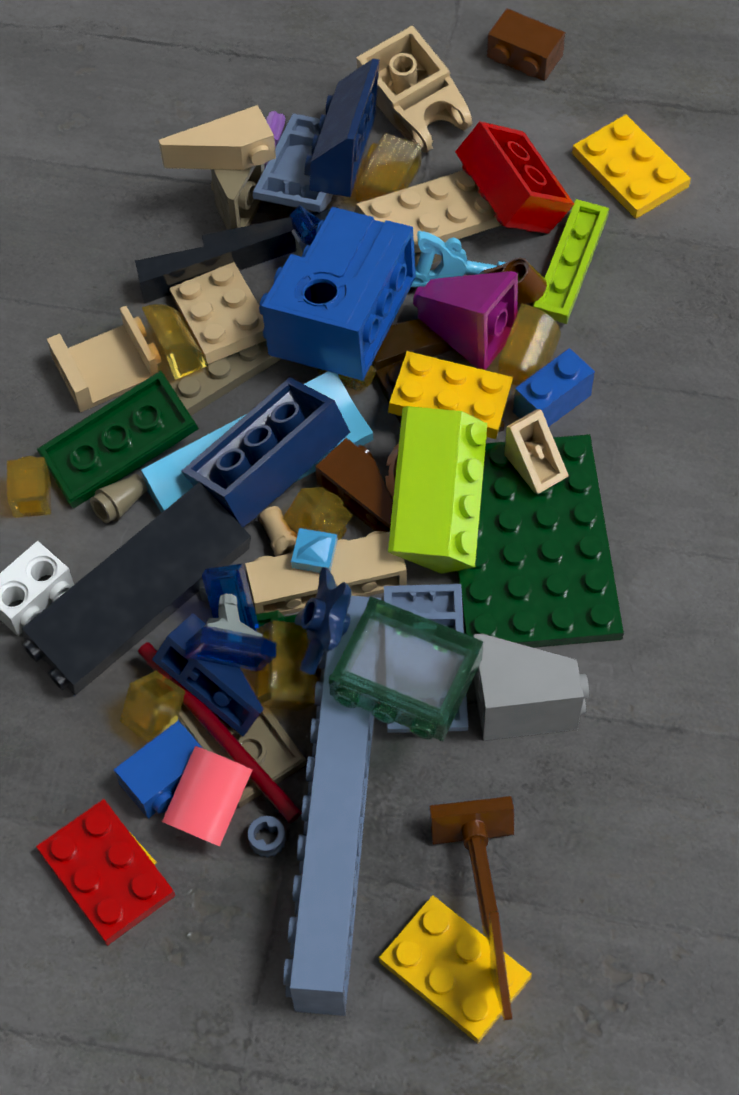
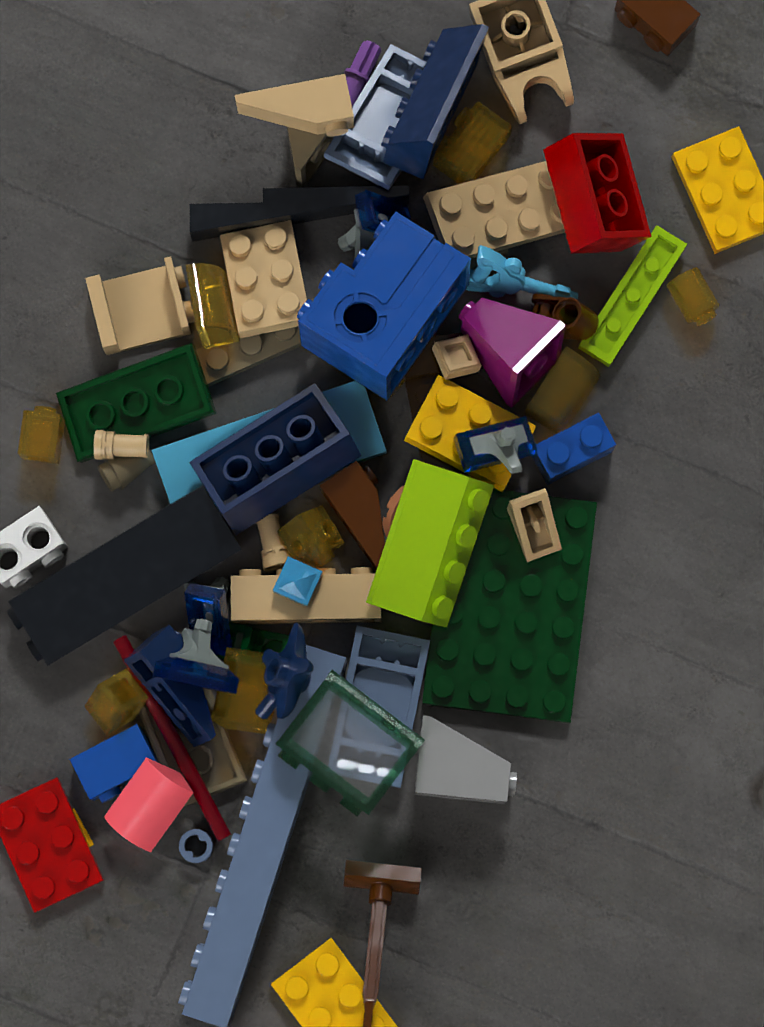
camera: 10 degrees right, 20 degrees up
(100, 473) = (109, 444): none -> tan pin
(420, 333) = (456, 357): none -> tan tile
(480, 389) = (495, 445): none -> piece
(628, 248) = (693, 297): none -> clear yellow brick

